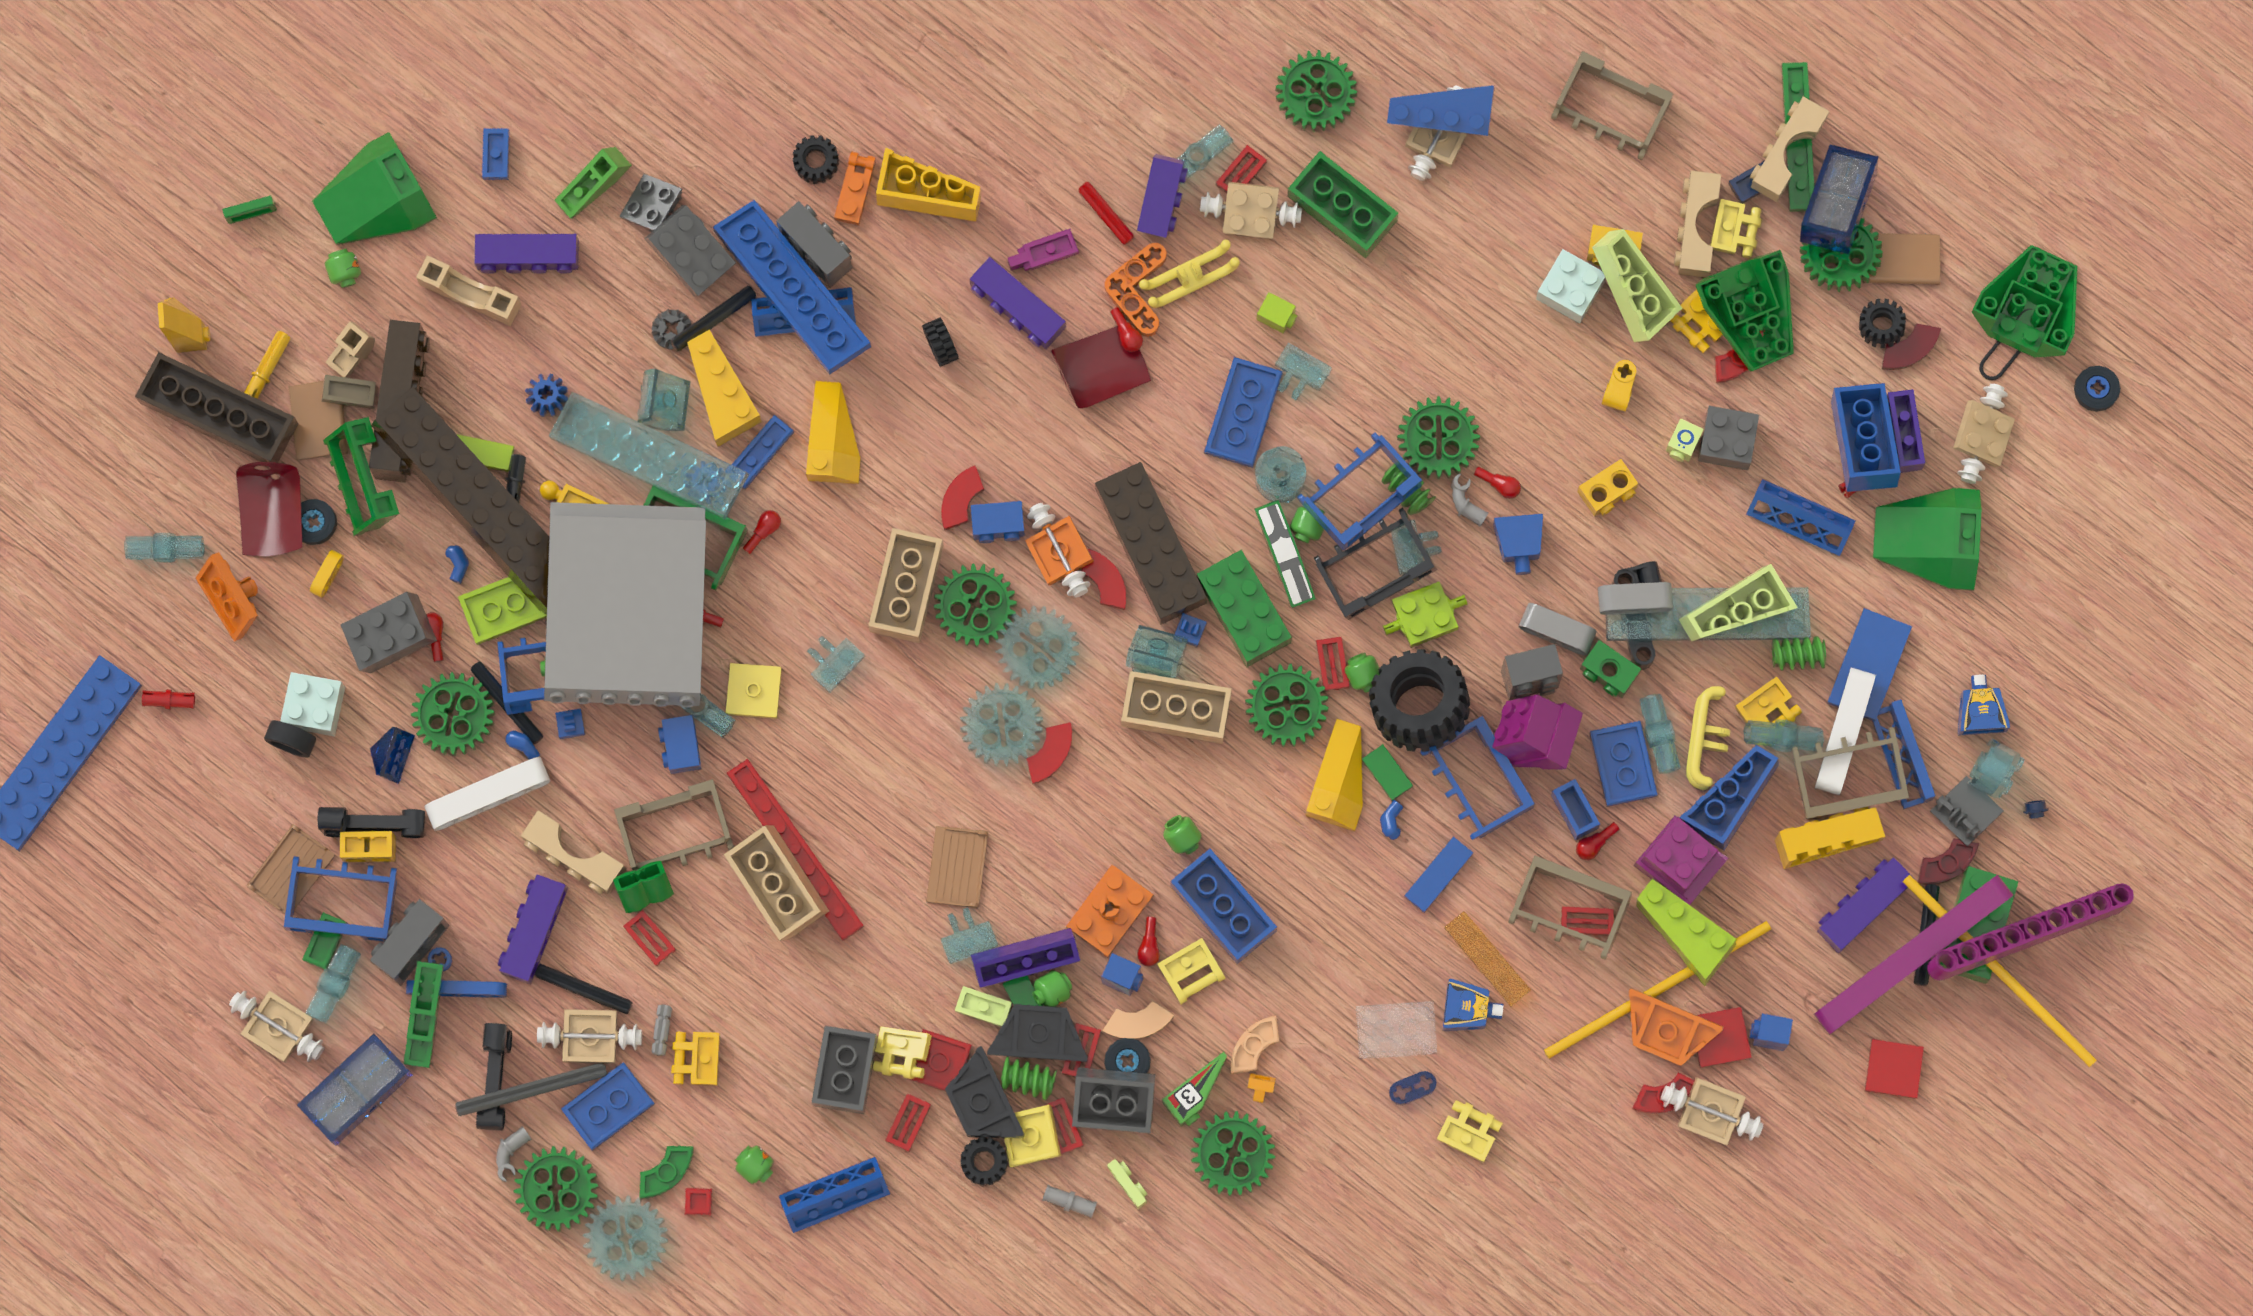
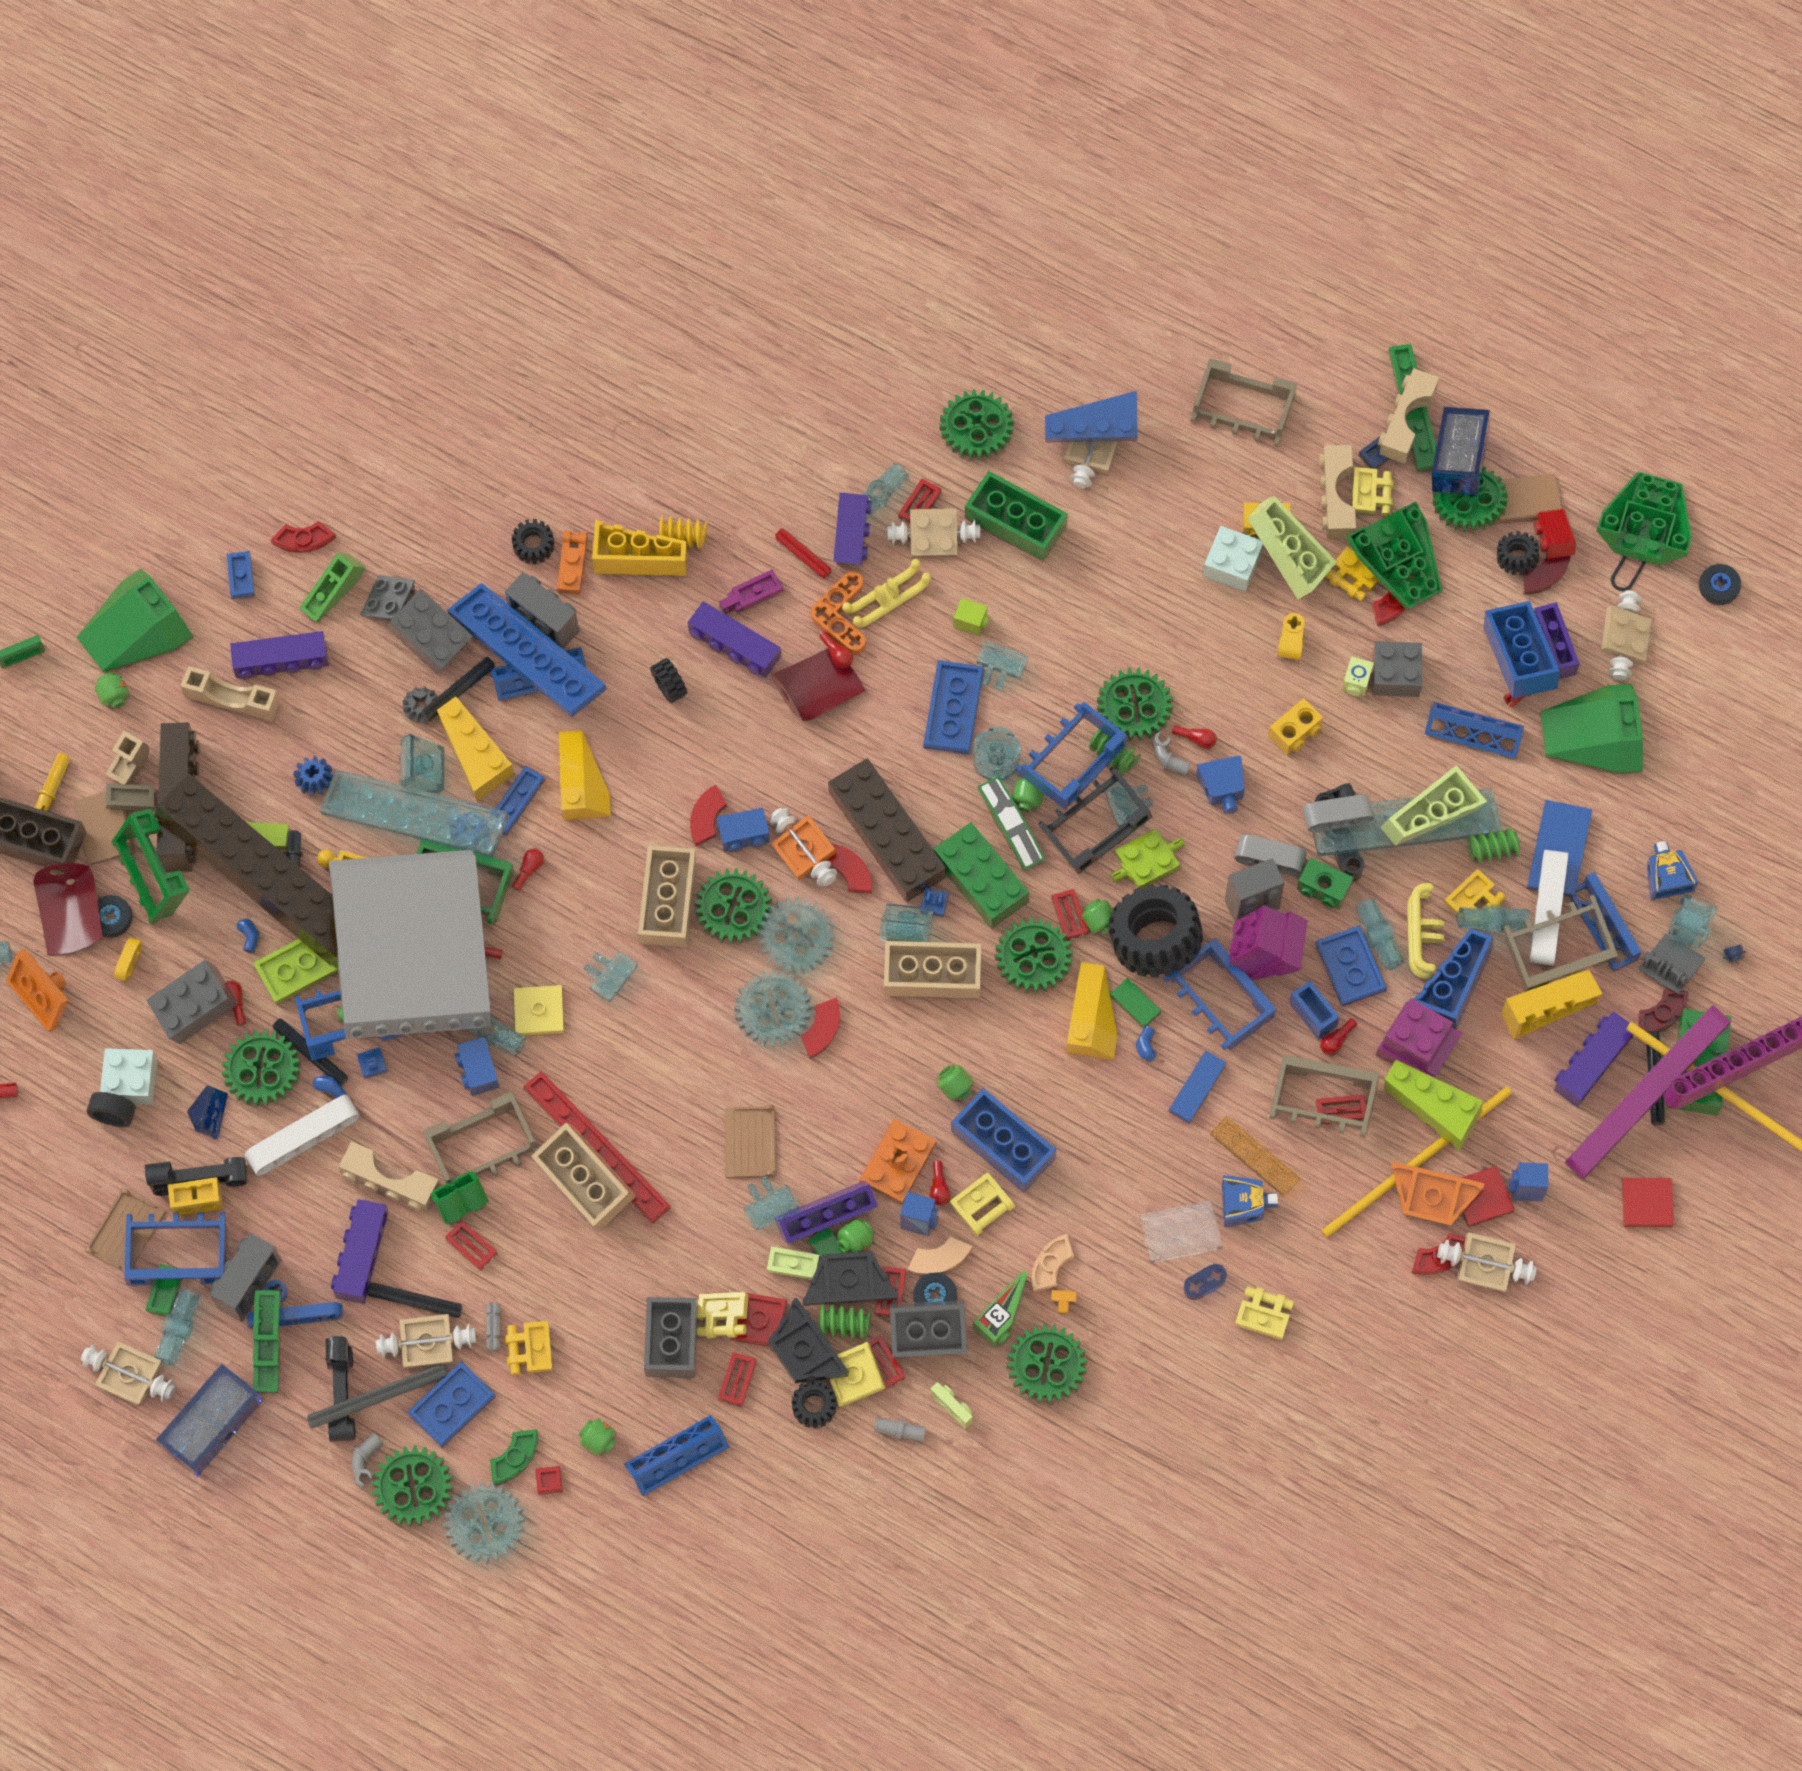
camera: 10 degrees left, 10 degrees down
(568, 121) = (303, 539): none -> red tile
(979, 172) = (684, 532): none -> yellow piece
(1927, 307) = (1555, 533): none -> red brick

